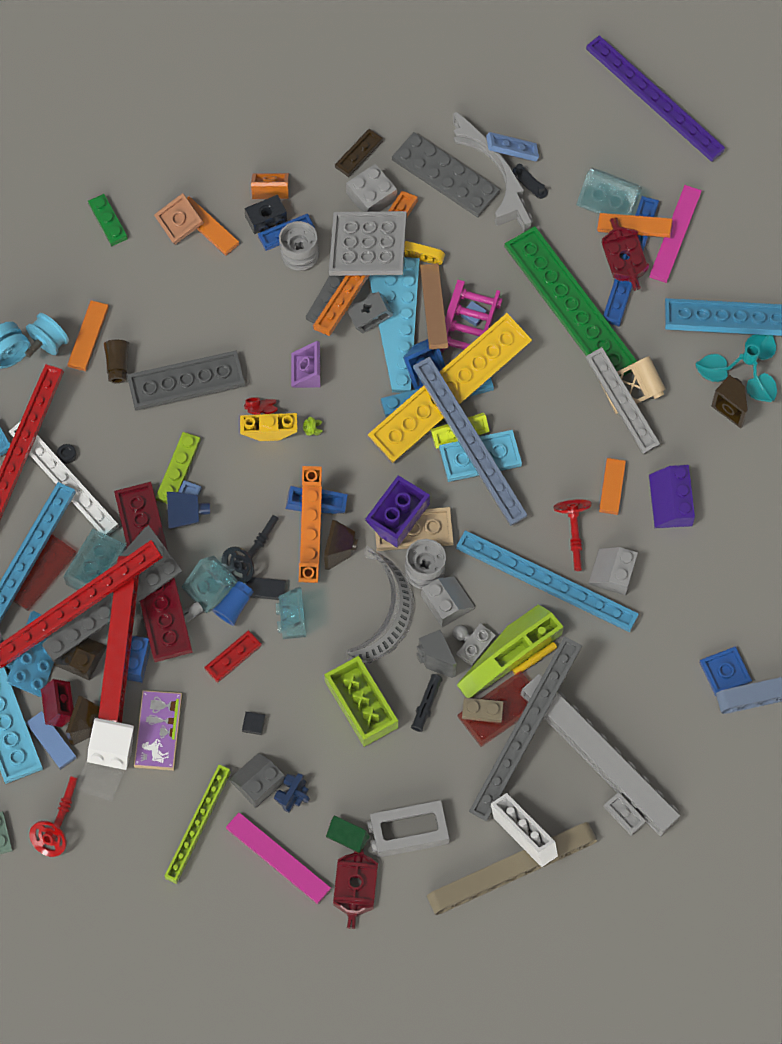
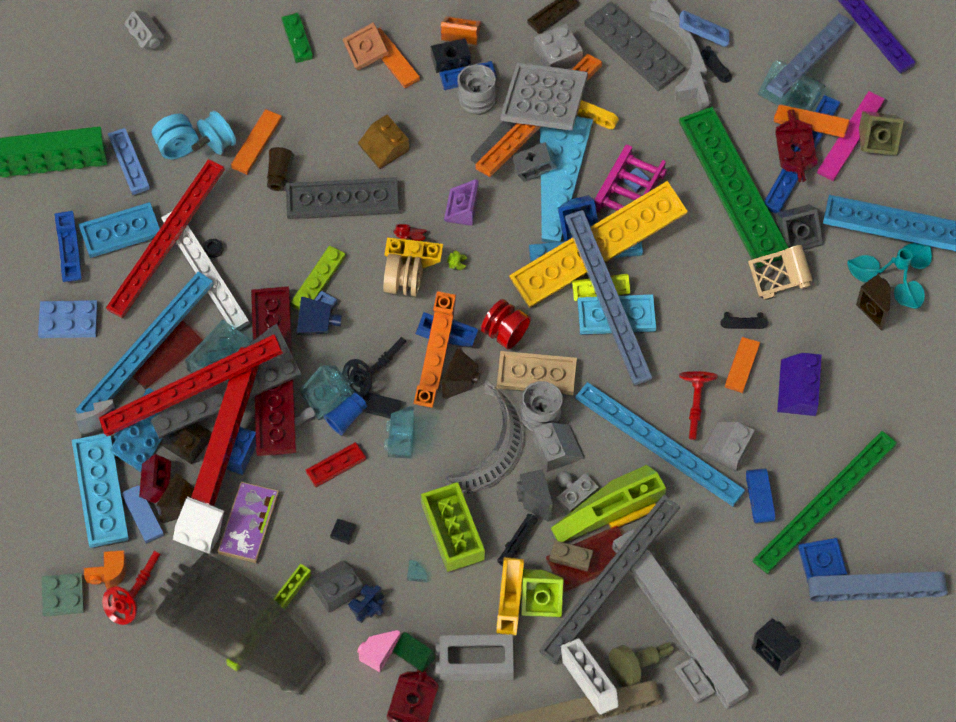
camera: 10 degrees right, 5 degrees down
(33, 804) = (112, 572): none -> orange brick
(170, 835) = (239, 623): none -> clear smoke windscreen
(216, 315) = (384, 142): none -> pearl gold slope
(262, 451) = (402, 274): none -> tan wheel
(278, 858) = (343, 665): dark pink tile -> none
(311, 837) = (378, 649): none -> bright pink slope
(333, 752) = (416, 572): none -> clear light blue tile
(371, 484) = (505, 324): none -> red wheel
(398, 511) = (524, 351): dark purple slope -> none
(431, 762) = (510, 596): none -> yellow arch
(433, 306) = (597, 165): medium nougat tile -> none
(460, 753) = (541, 593): none -> lime slope
(558, 810) = (627, 665): none -> olive piece
(618, 441) = (744, 323): none -> black piece
(621, 159) = (810, 55): none -> sand blue plate
(622, 400) = (767, 283): light grey plate -> none
(643, 336) = (800, 226): none -> dark grey slope
(654, 617) = (760, 495): none -> blue beam
(698, 766) = (776, 646): none -> black brick
(704, 226) = (880, 132): none -> olive slope
(717, 613) = (824, 502): none -> green plate

